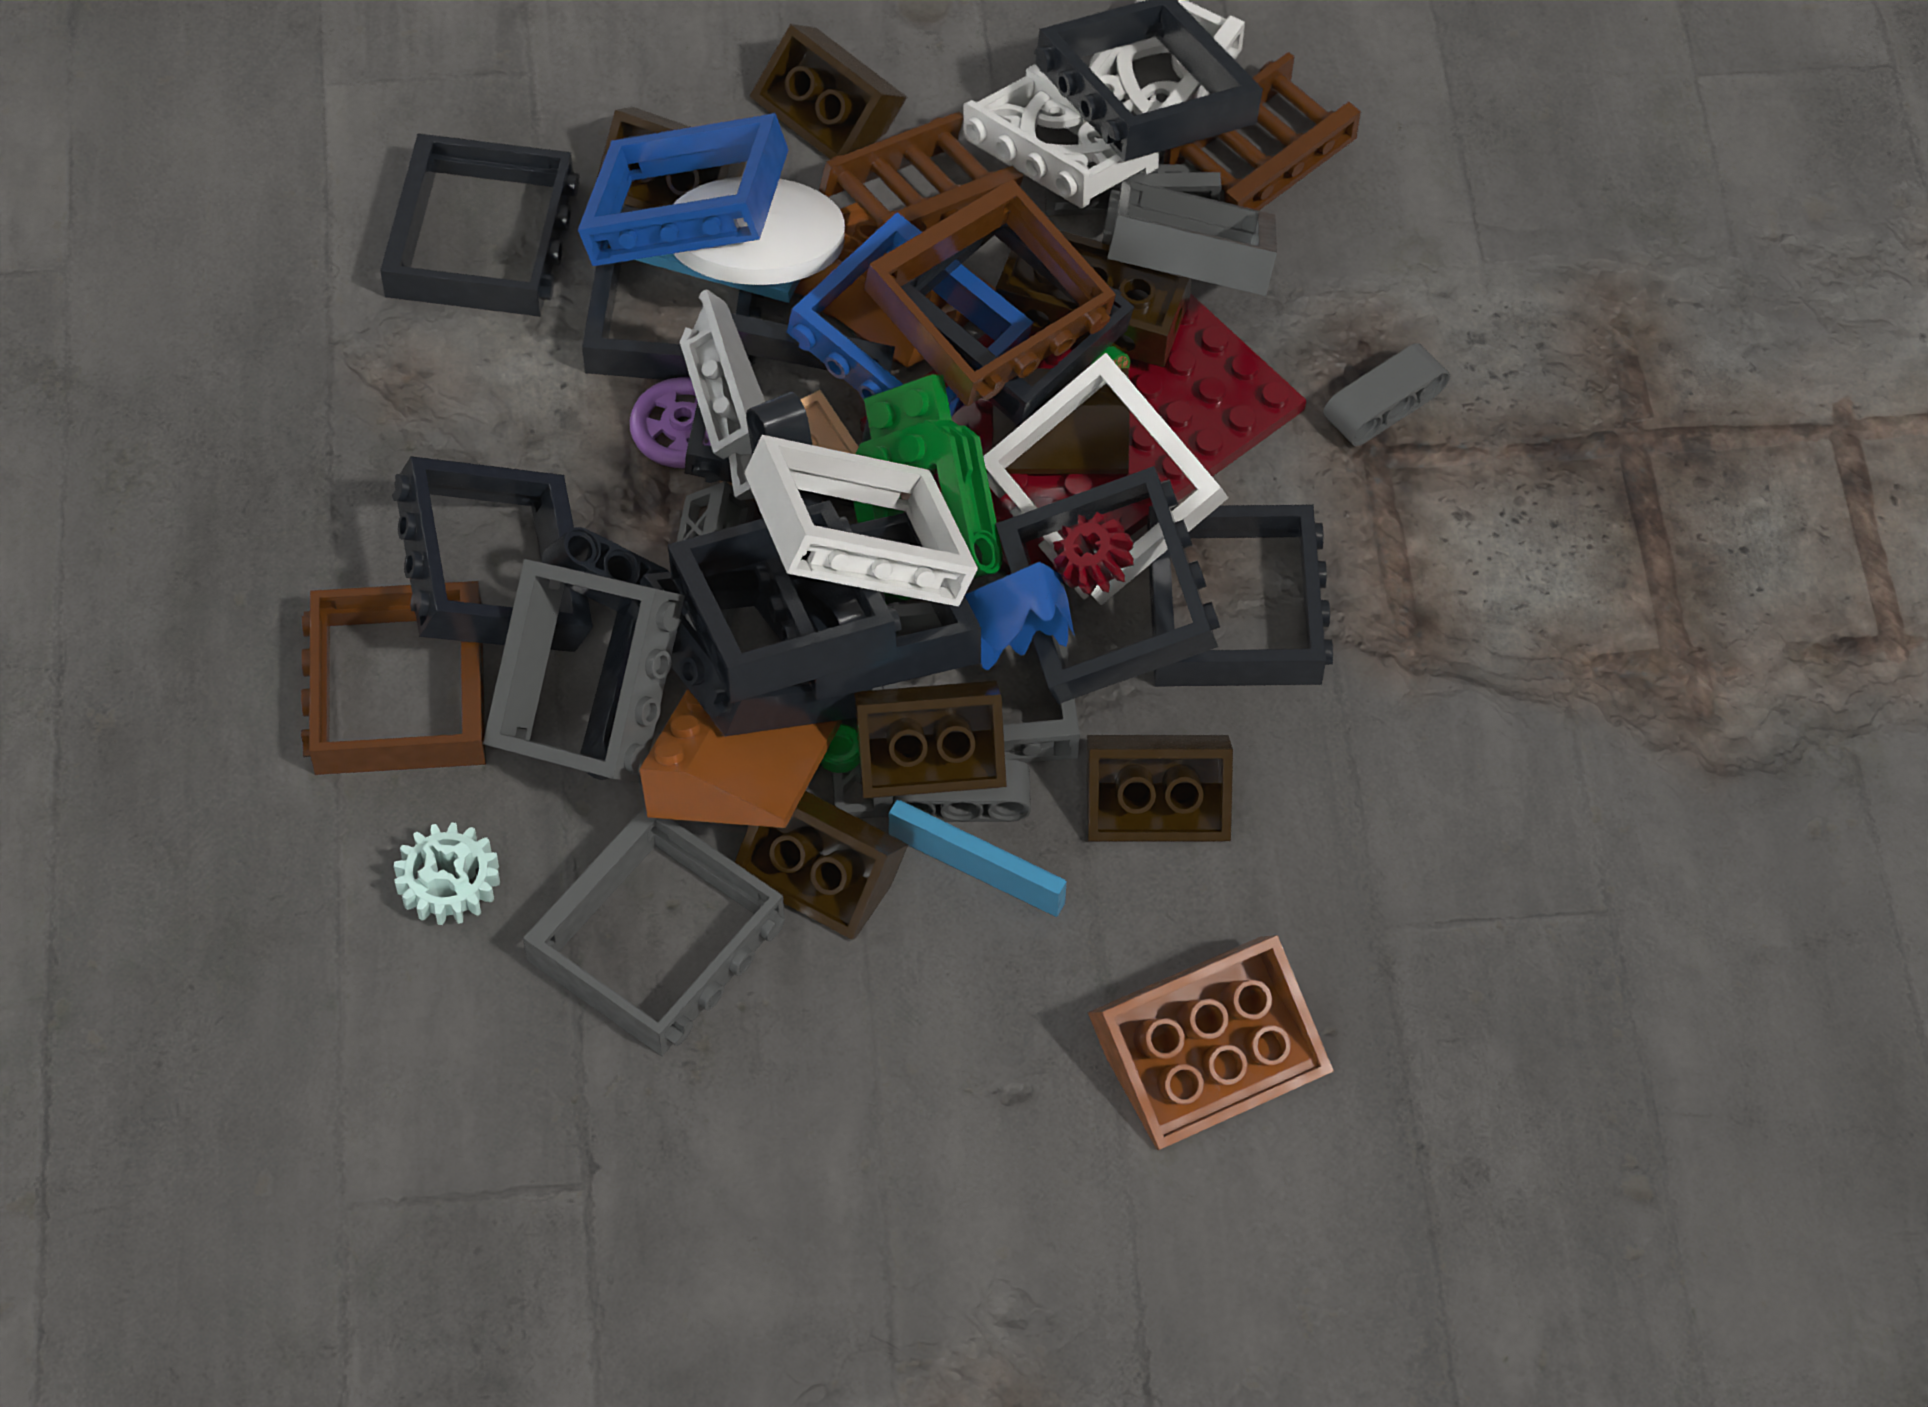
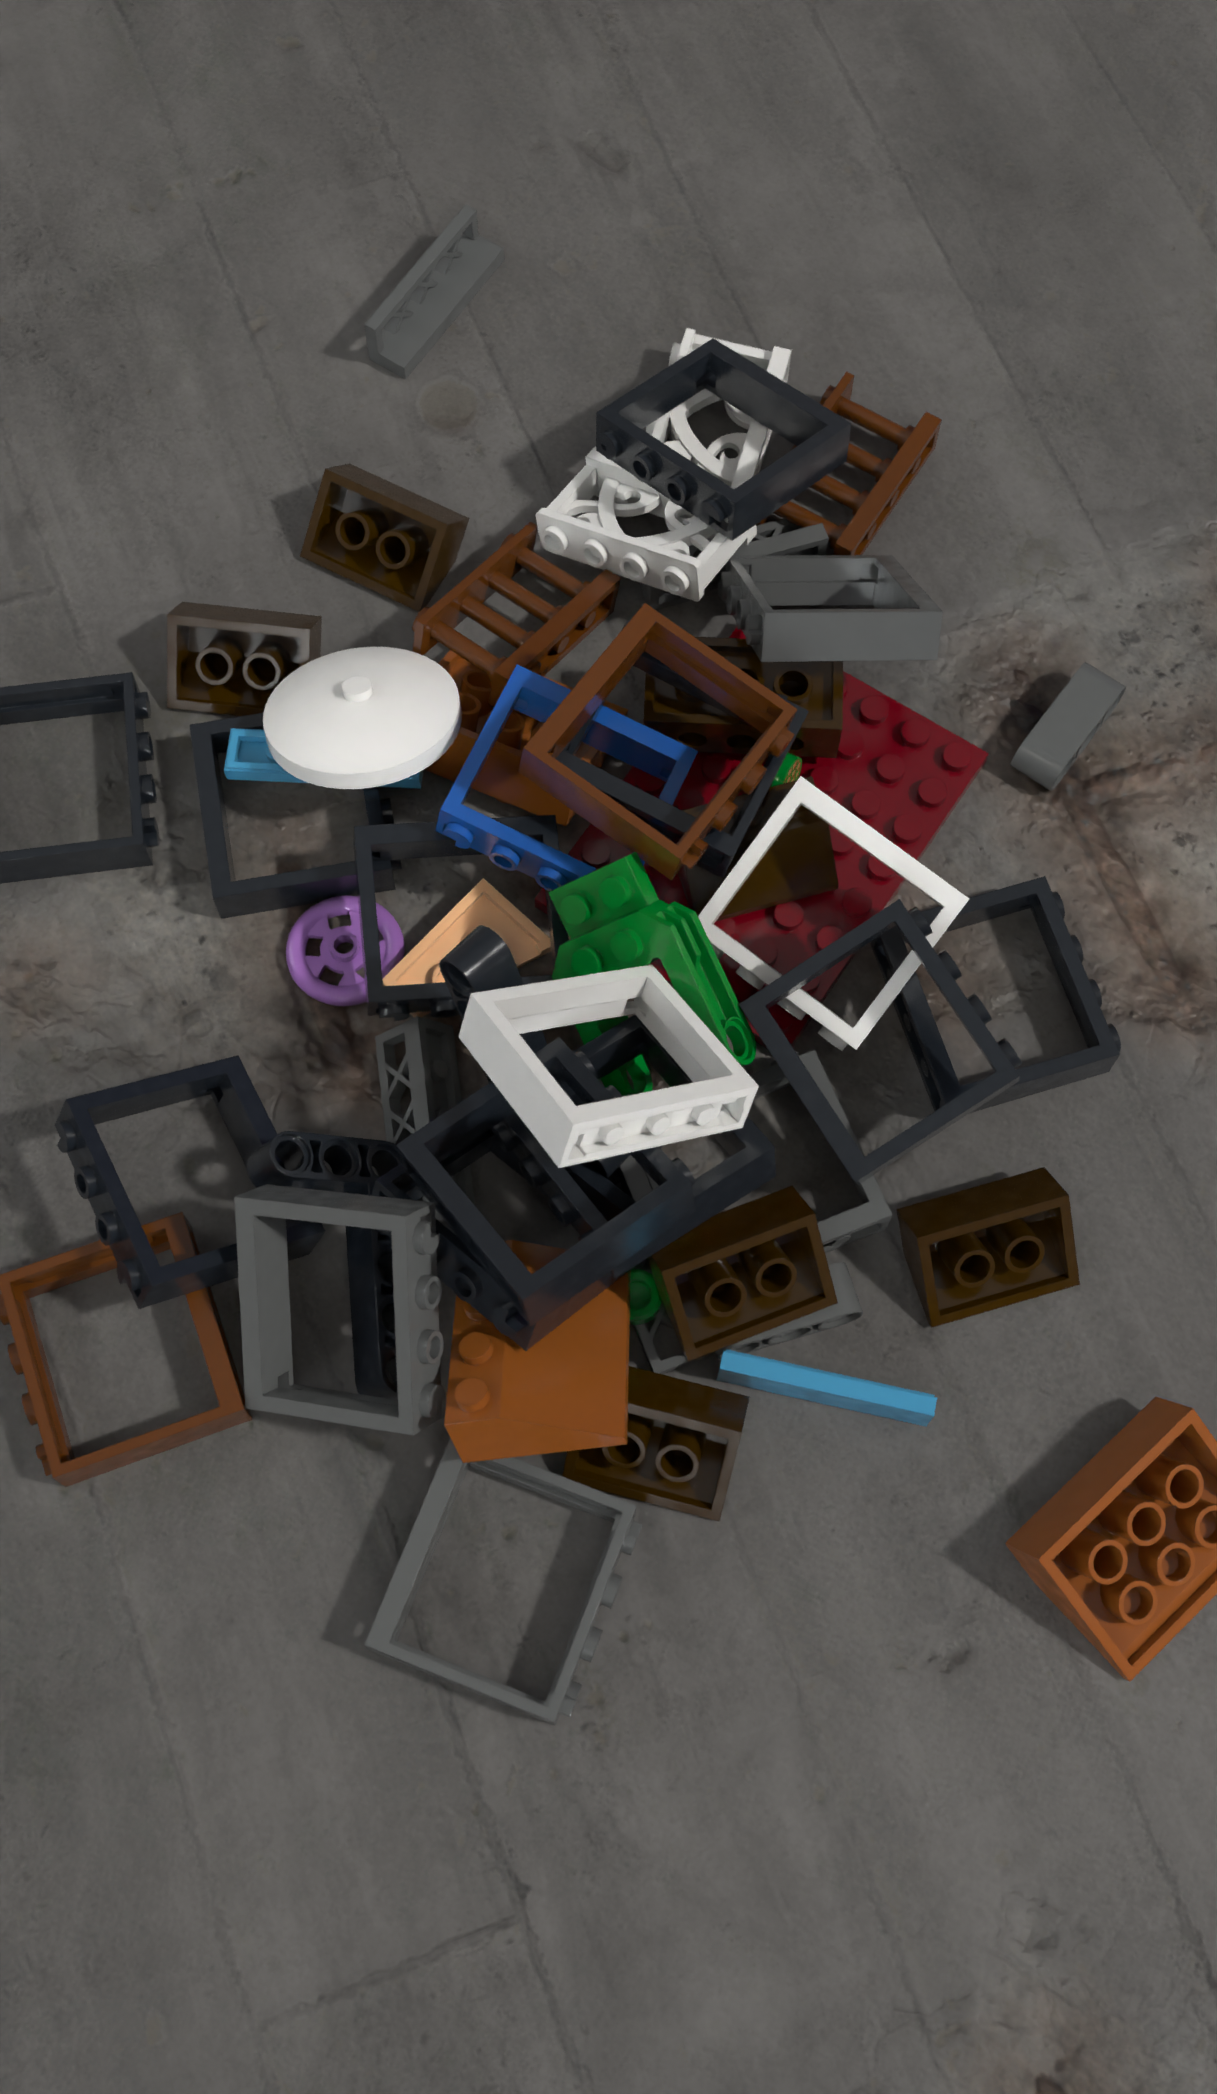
camera: 15 degrees left, 10 degrees up
(441, 891) = (237, 1596): light aqua gear -> none
(692, 223) = (291, 738): blue window -> none
(722, 385) = (393, 920): light grey wedge -> none
(1017, 608) = (796, 1103): blue piece -> none
(1098, 537) = (869, 1038): dark red gear -> none

